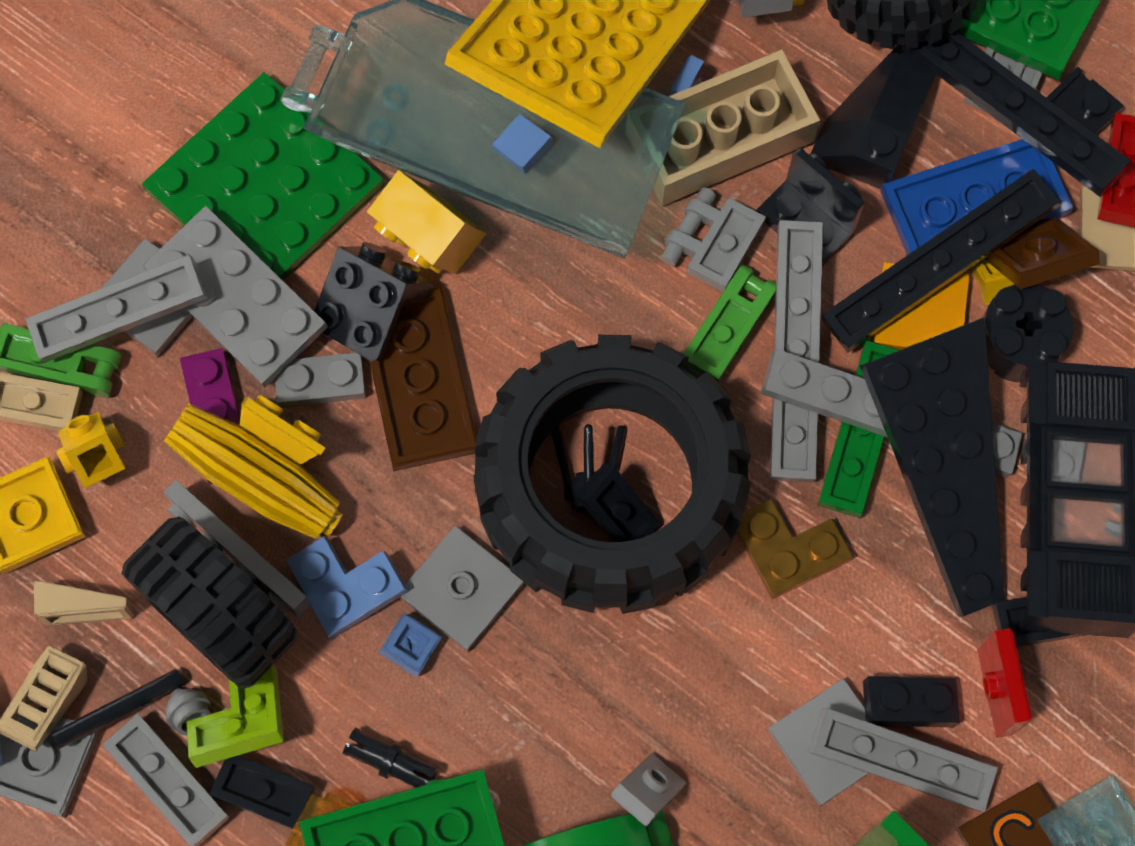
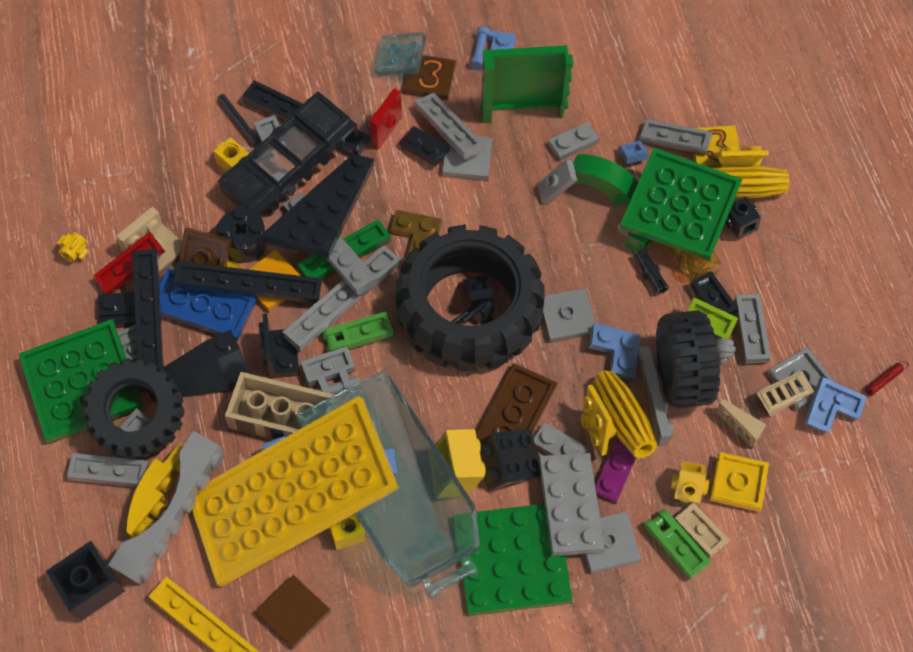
camera: 140 degrees left, 10 degrees down
(116, 308) = (633, 529): light grey plate -> none
(116, 709) = (755, 369): black bar -> none
(410, 644) = (608, 307): medium blue tile -> none

